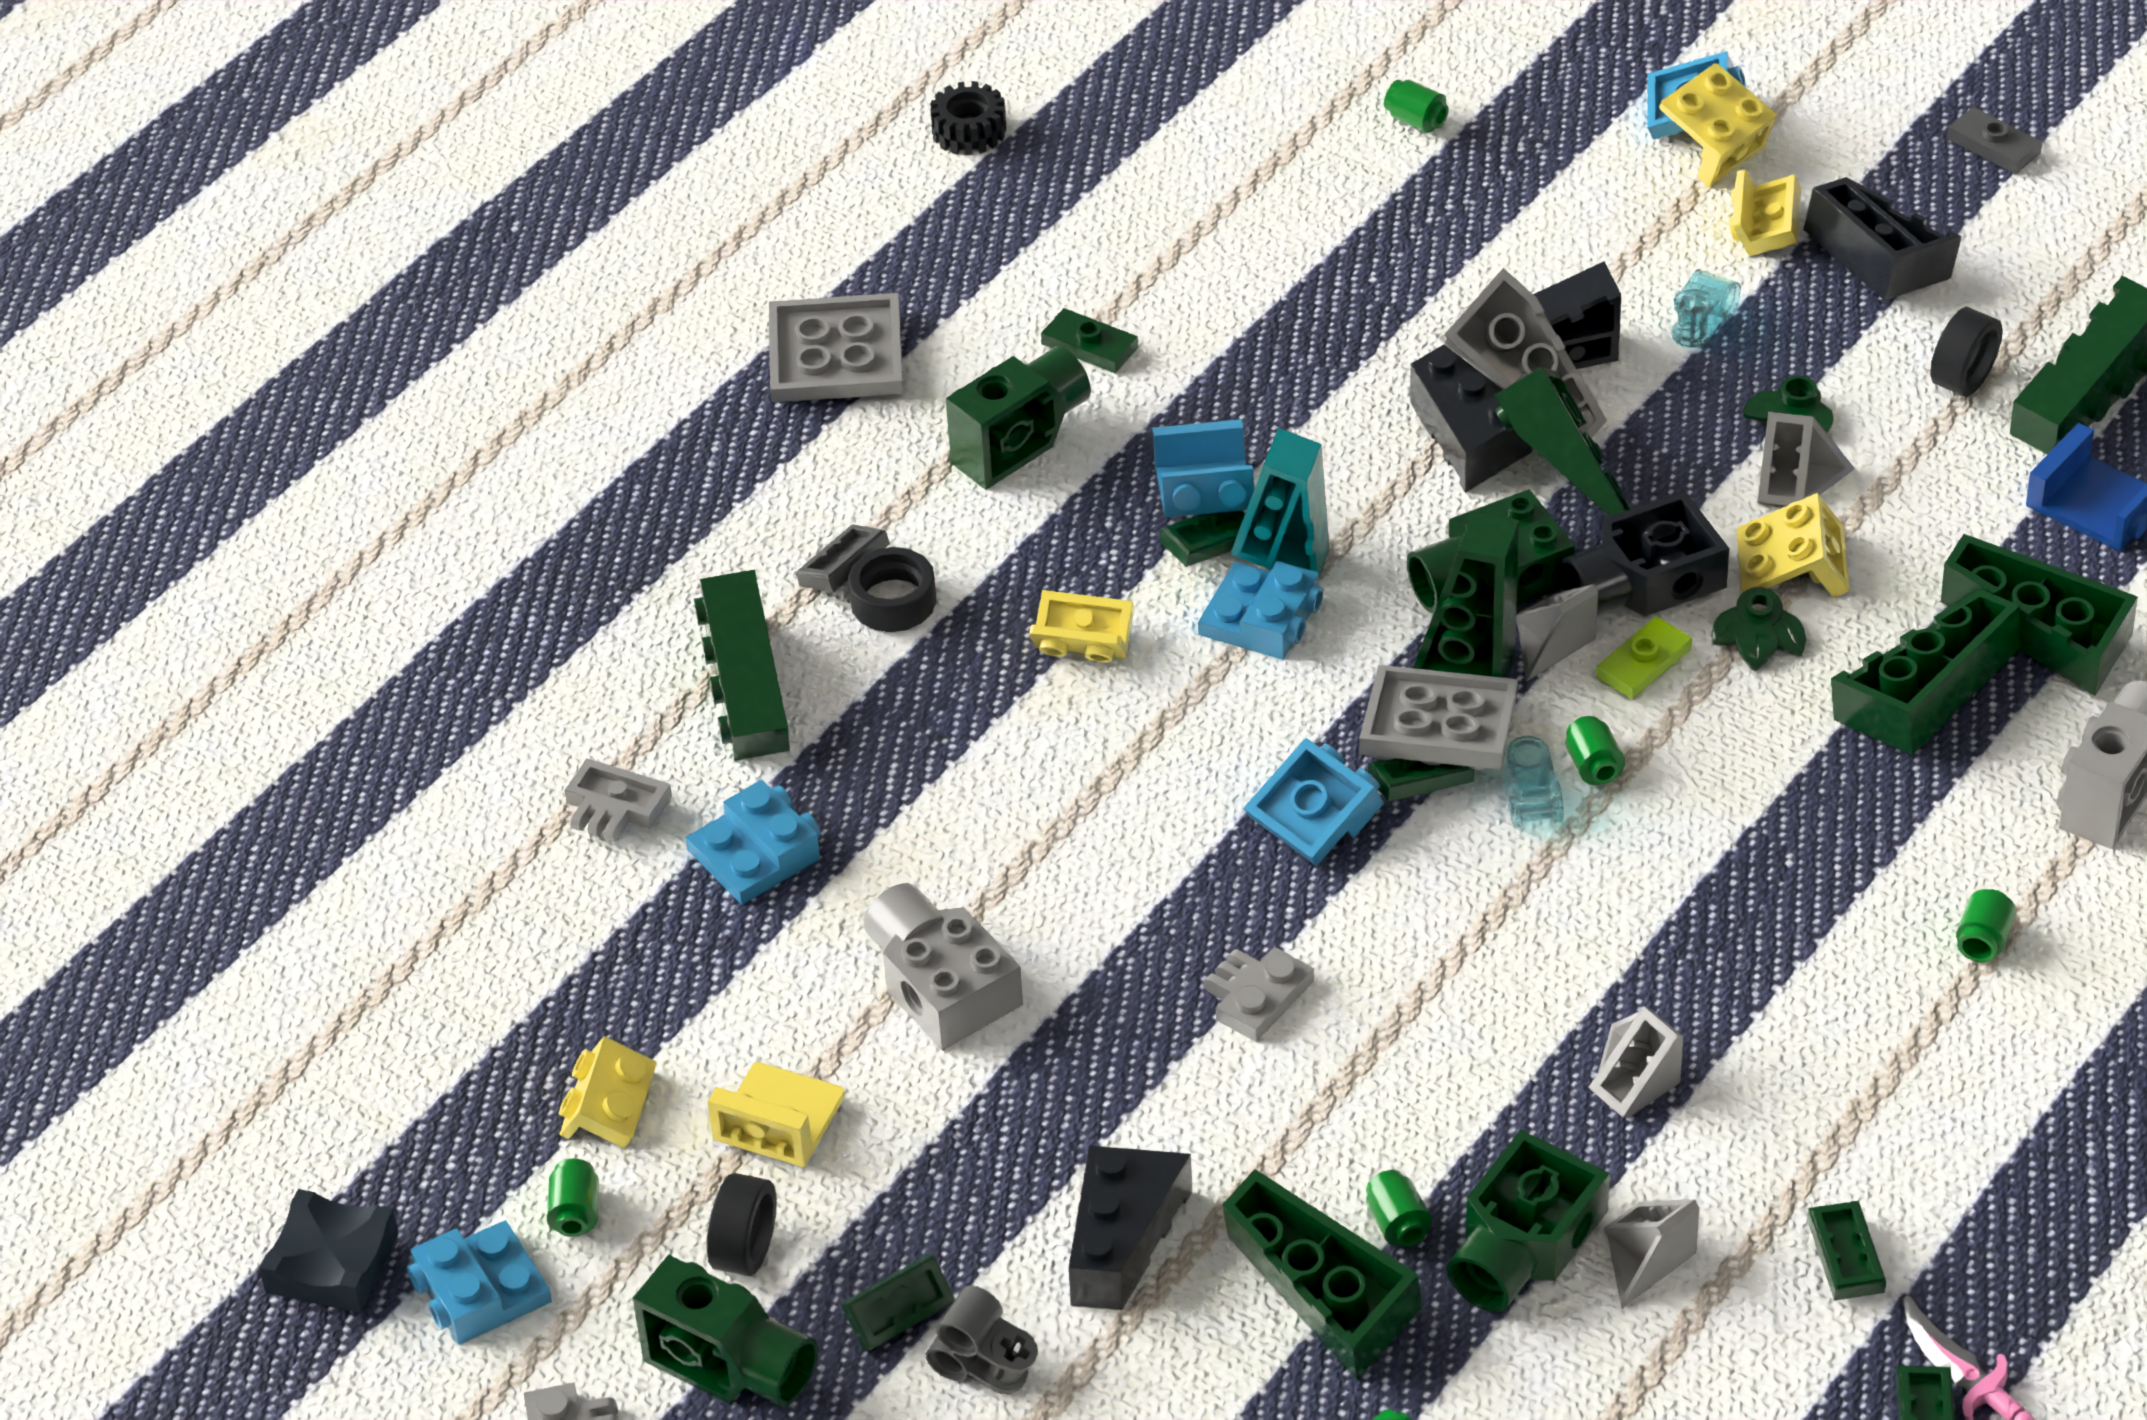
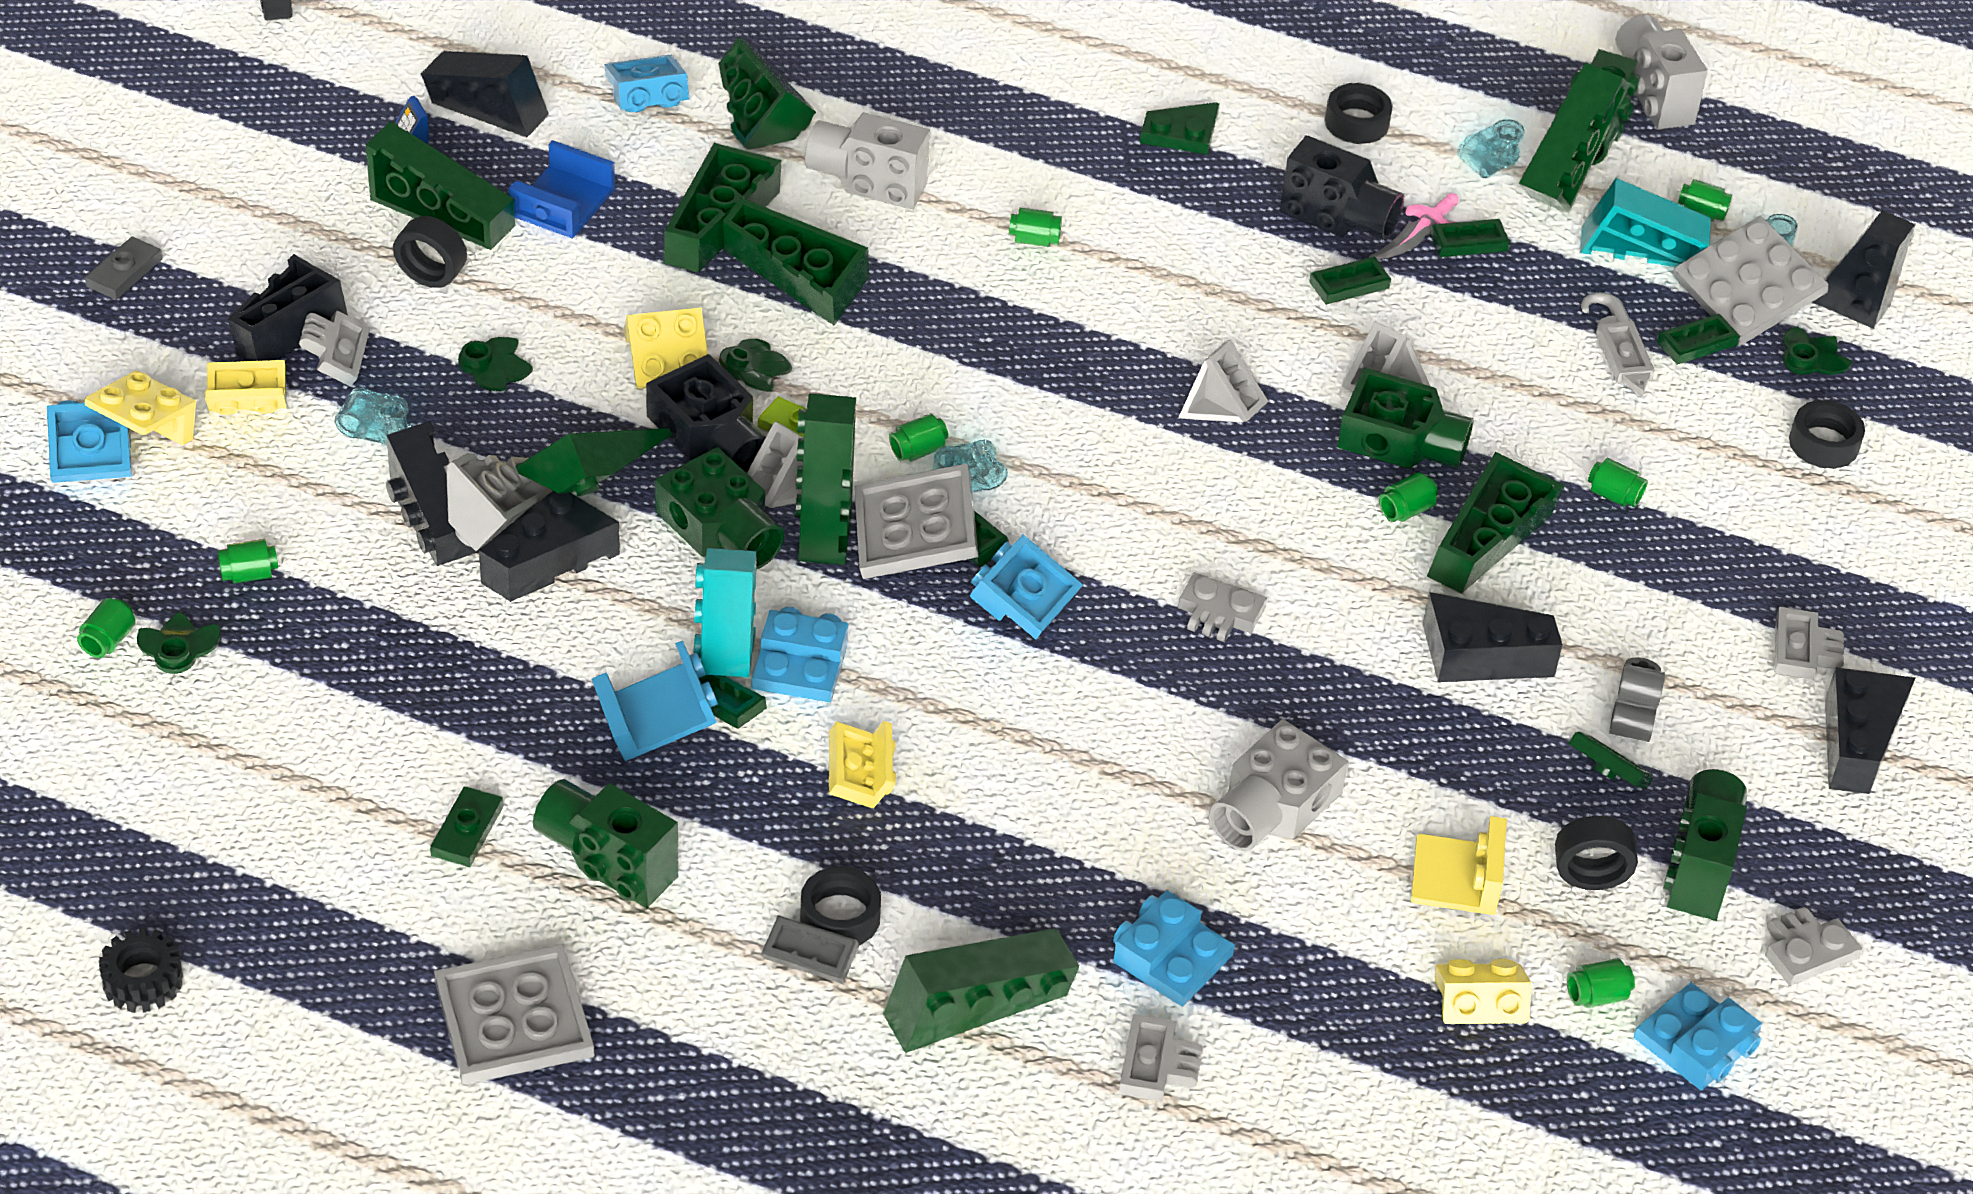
camera: 110 degrees left, 0 degrees up
(329, 1252) = (1726, 1135): black brick -> none
(1392, 157) = (177, 643): none -> dark green plate
(1491, 202) = (247, 561): none -> brick
(1798, 460) = (568, 355): light grey slope -> none
(1823, 281) = (337, 343): none -> light grey hinge
(2007, 1247) = (1337, 191): none -> black brick

